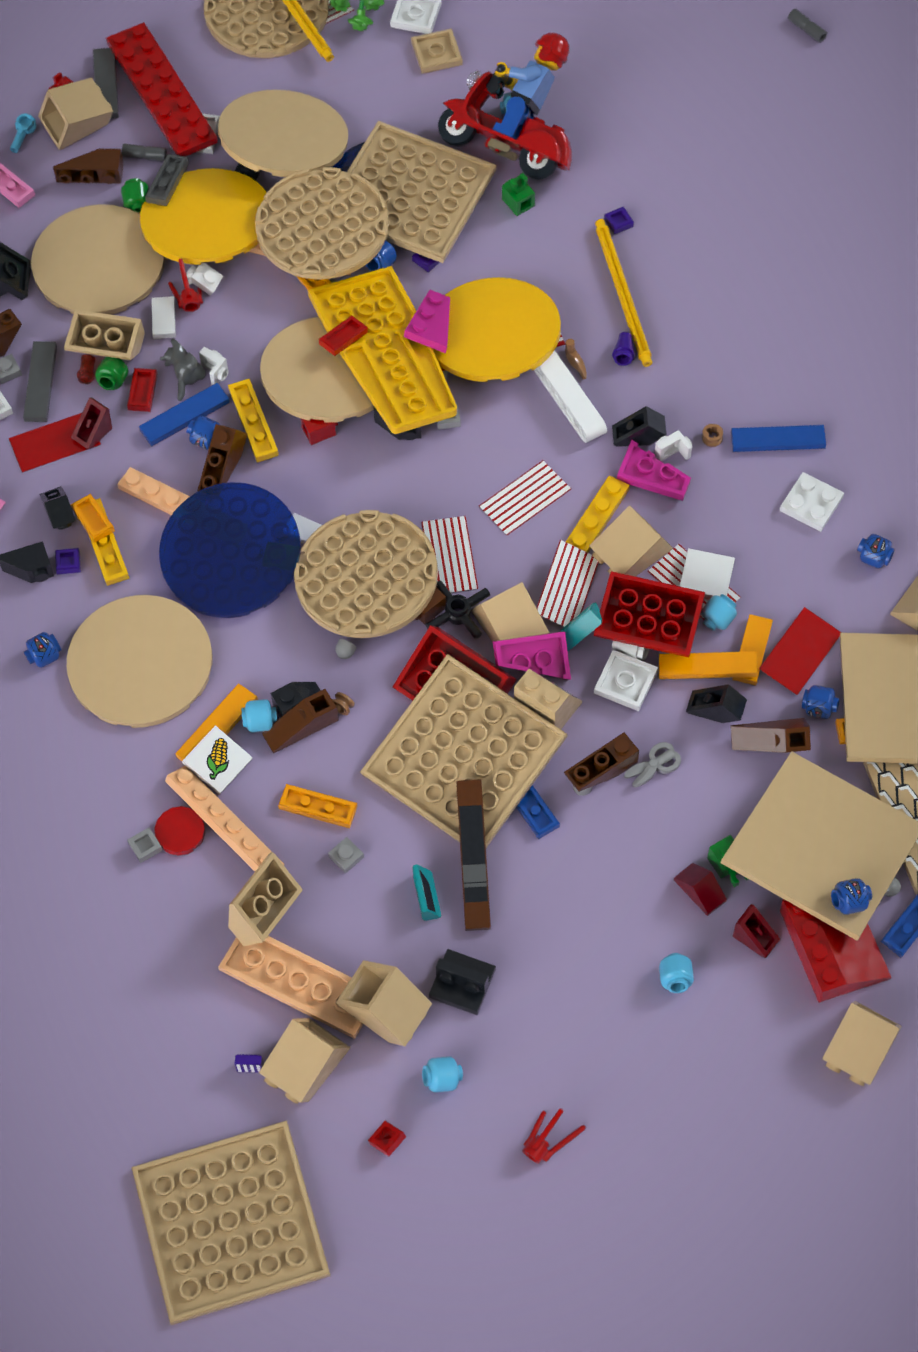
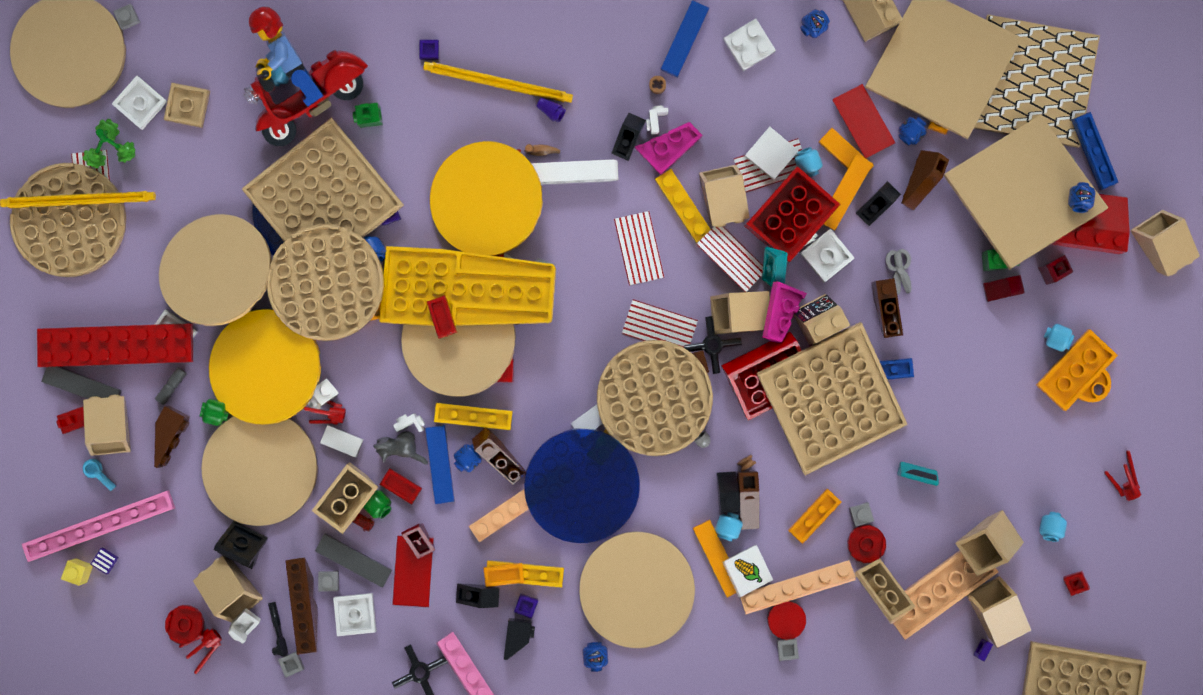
camera: 65 degrees left, 25 degrees up
(167, 180) = (212, 381): dark grey tile -> none
(315, 875) = (866, 543): none -> red tile
(431, 322) = (460, 243): dark pink wing -> none
(461, 981) = (992, 480): black bracket -> none
(473, 855) = (909, 429): tile -> none
(647, 1018) = (1079, 371): none -> light orange plate

